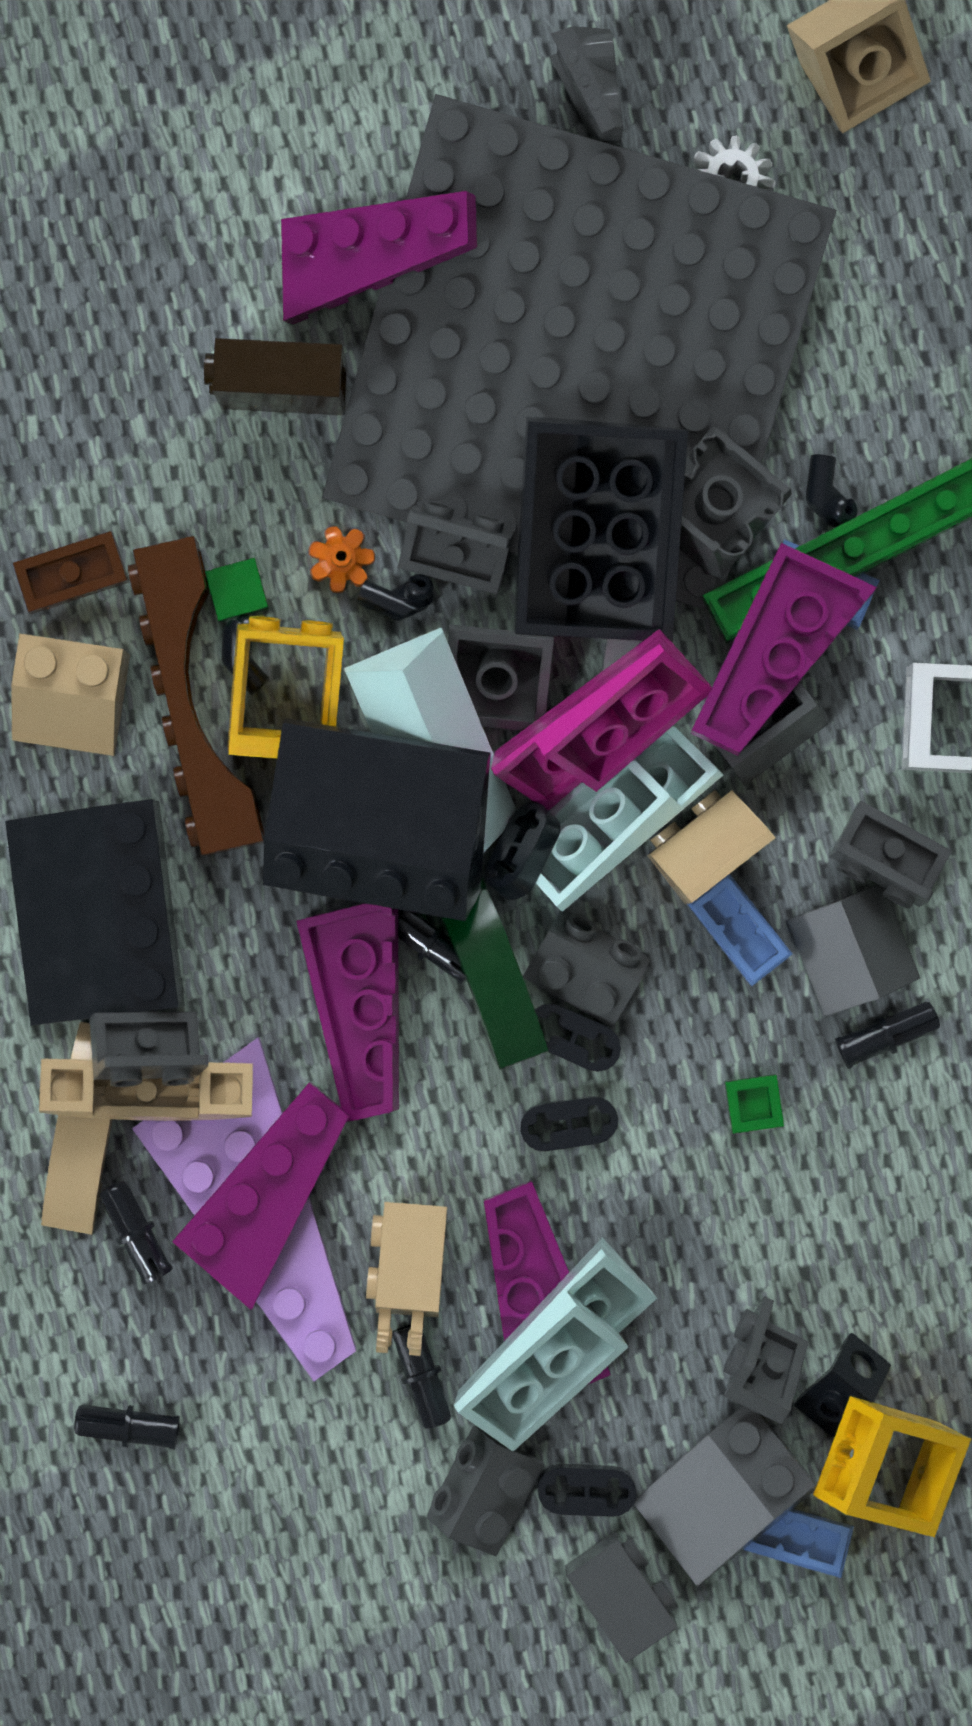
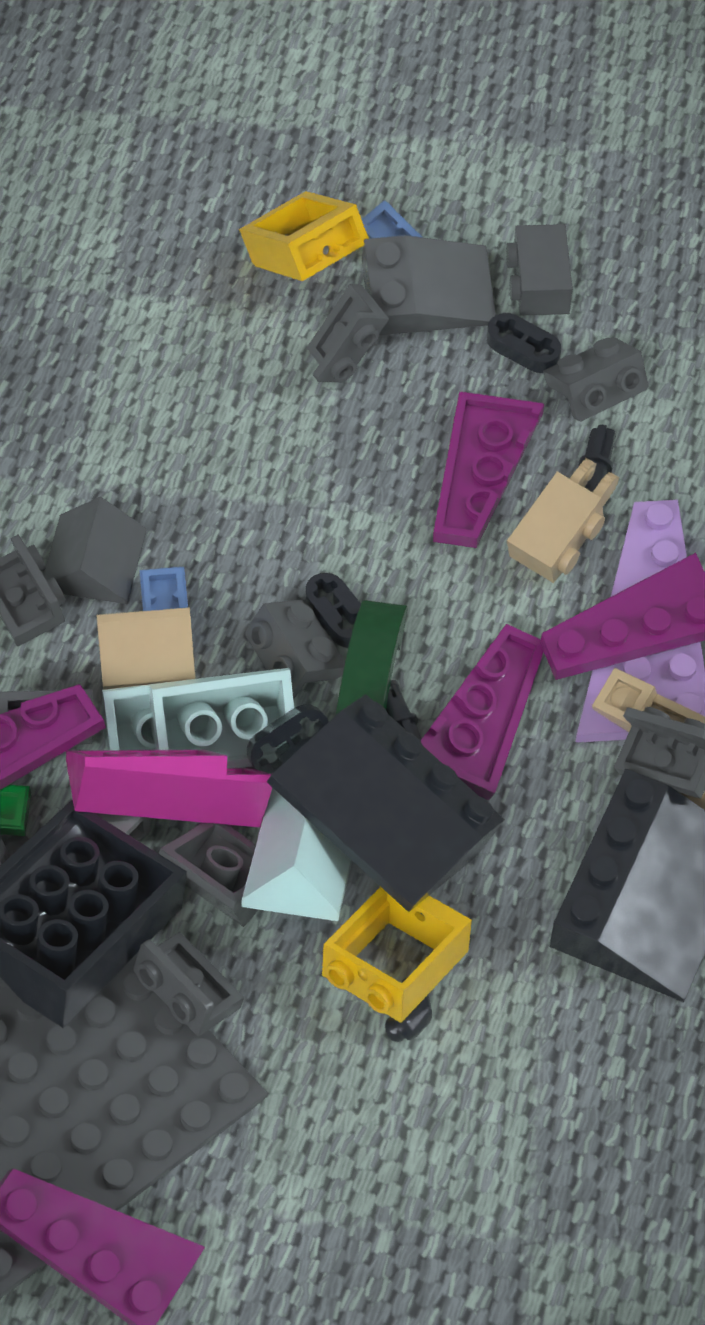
camera: 155 degrees left, 30 degrees down
(68, 694) = (570, 1060): tan slope -> none
(70, 572) = (513, 1151): reddish brown plate -> none
(174, 593) = (437, 1079): reddish brown arch -> none
(236, 589) = (384, 1062): green tile -> none
(277, 376) = (240, 1185): dark brown brick -> none
(345, 570) = (284, 1039): orange plant -> none
(400, 602) = (259, 977): black arm -> none
(556, 1348) = (488, 423): light aqua slope -> none
(566, 1111) = (380, 559): black beam -> none
(754, 1103) = (237, 502): green tile -> none
(828, 1396) = (301, 299): black bracket -> none
(888, 1034) = (113, 490): black axle -> none

